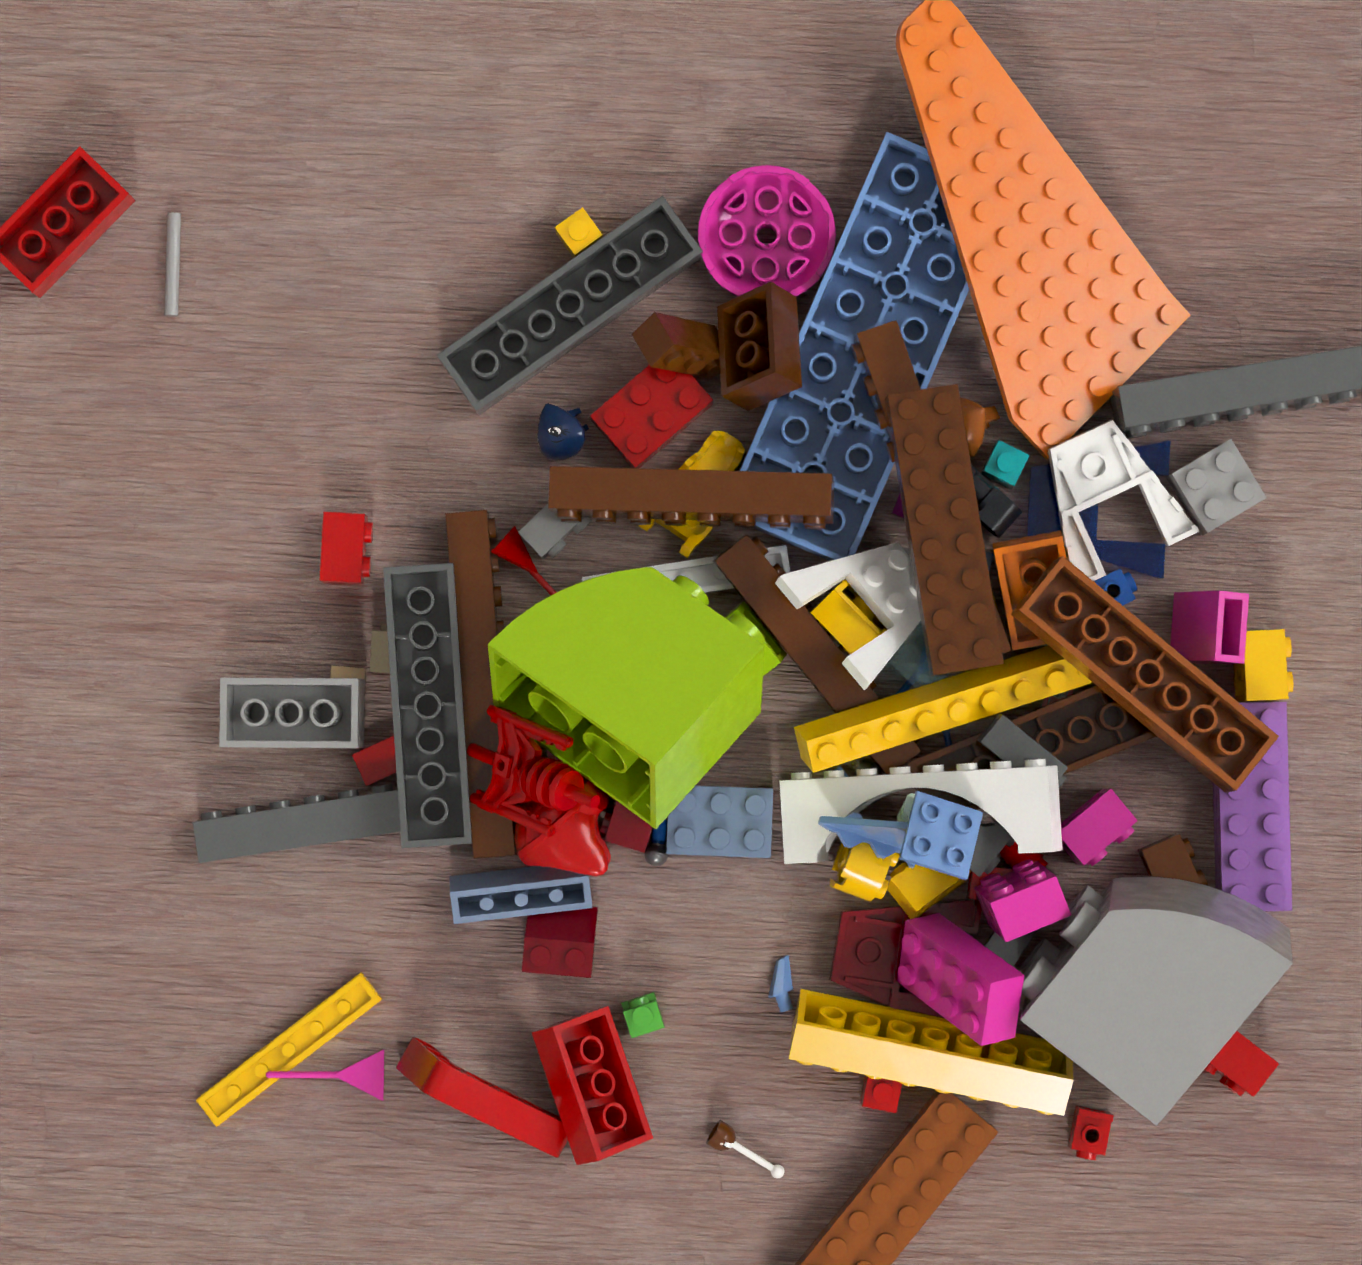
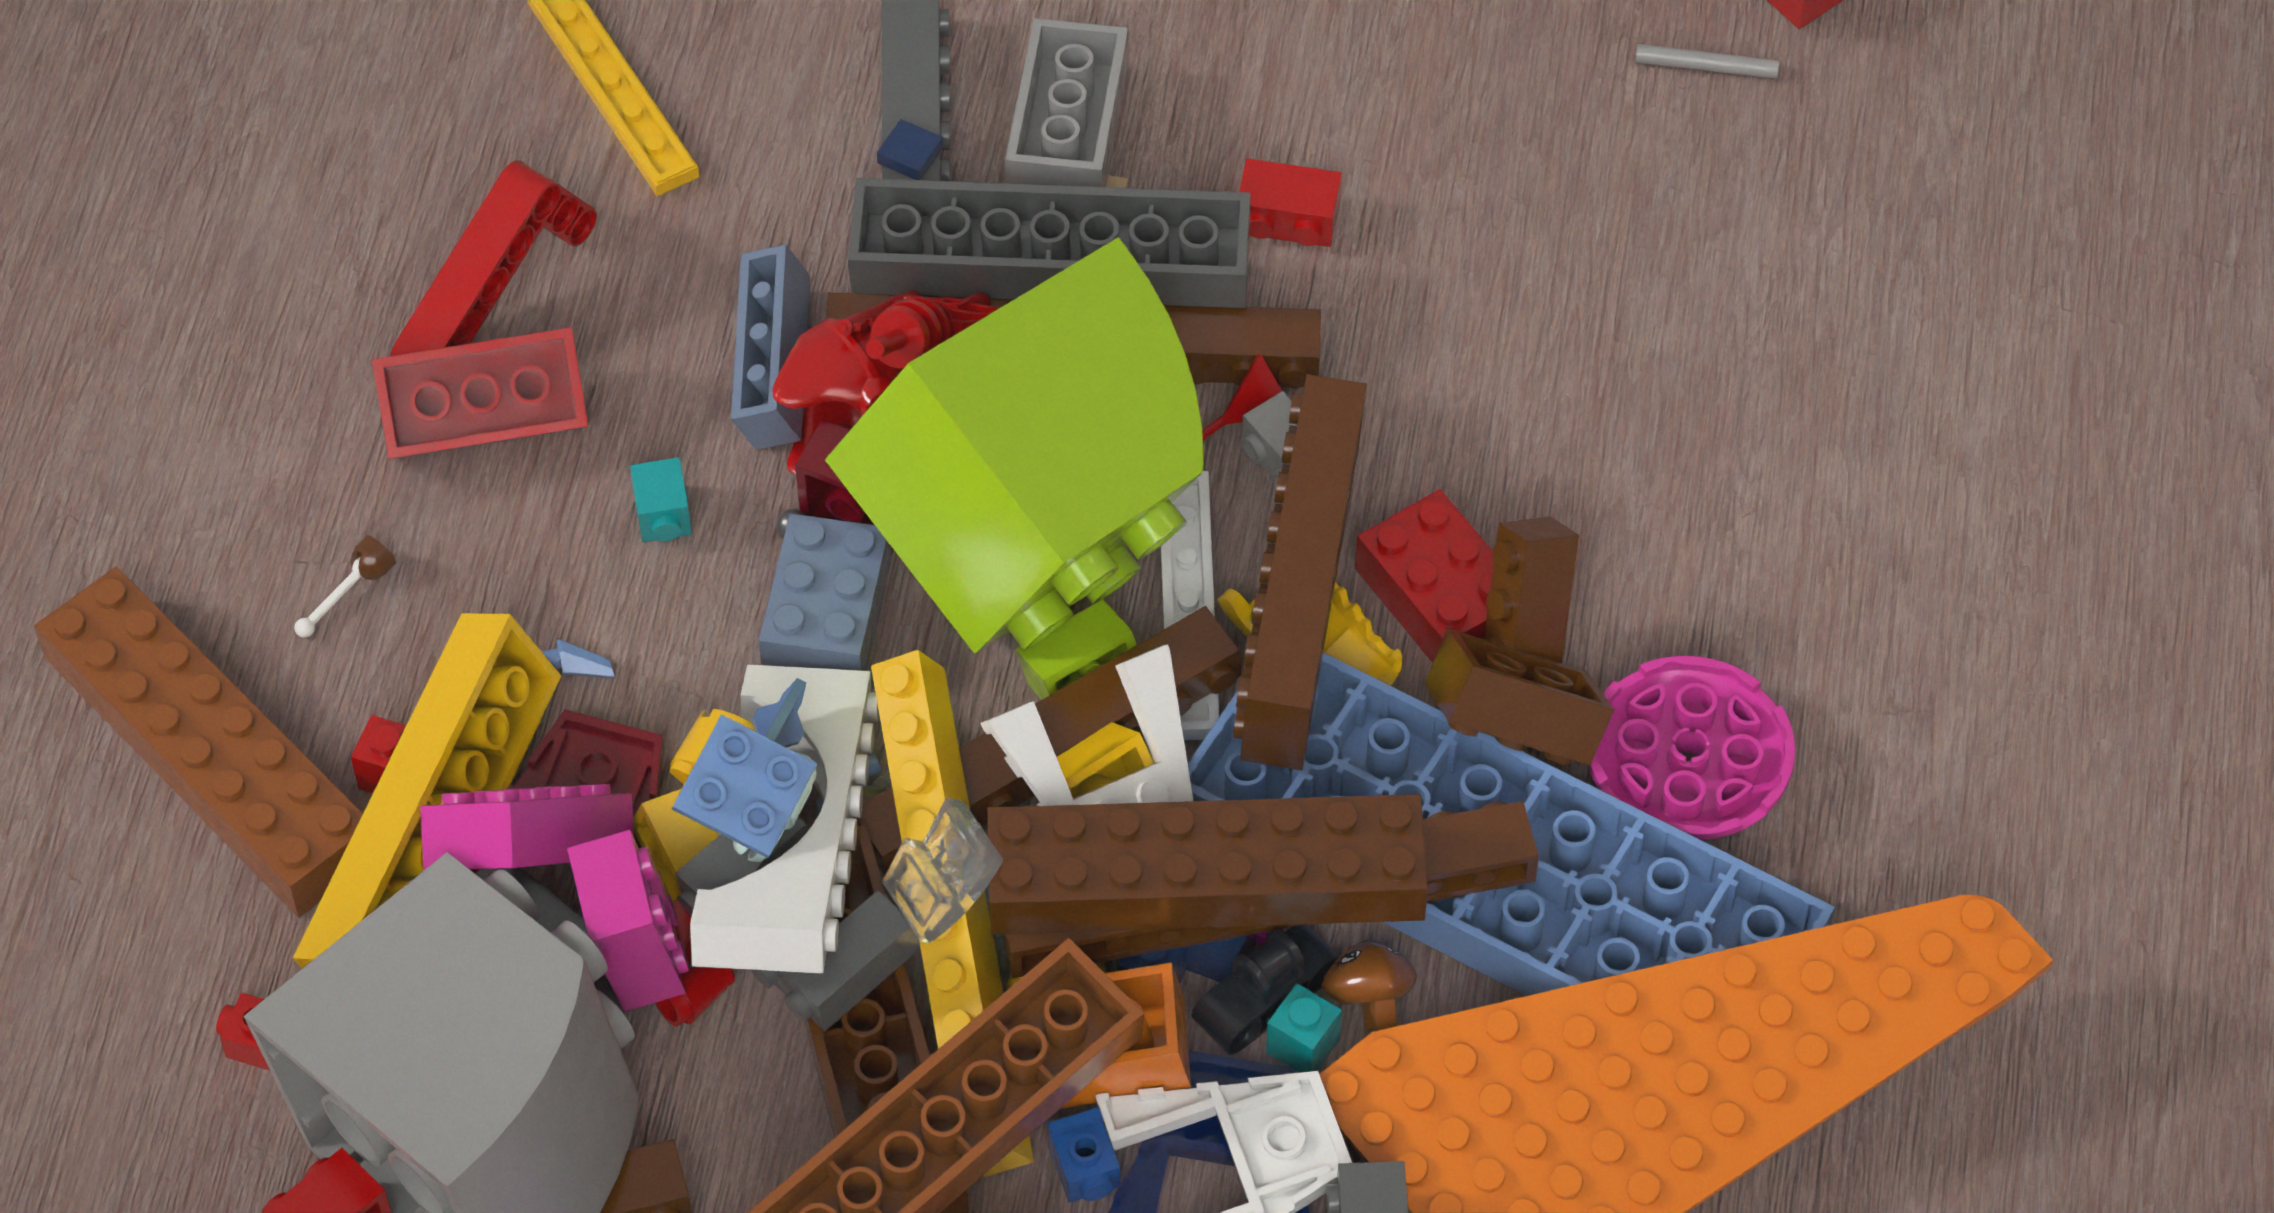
camera: 100 degrees right, 30 degrees down
(347, 819) = (909, 150): none -> dark blue tile
(364, 1075) = (559, 157): dark pink piece -> none
(560, 433) = (1418, 458): dark blue piece -> none
(560, 943) = (686, 393): dark red slope -> none
(570, 305) = (1608, 490): dark grey brick -> none
(578, 232) = (1710, 520): yellow brick -> none
(642, 1015) = (565, 478): bright green brick -> none
(652, 947) = (660, 500): none -> teal brick
(973, 699) = (945, 873): none -> clear slope
(1096, 826) = (722, 1075): dark pink brick -> none

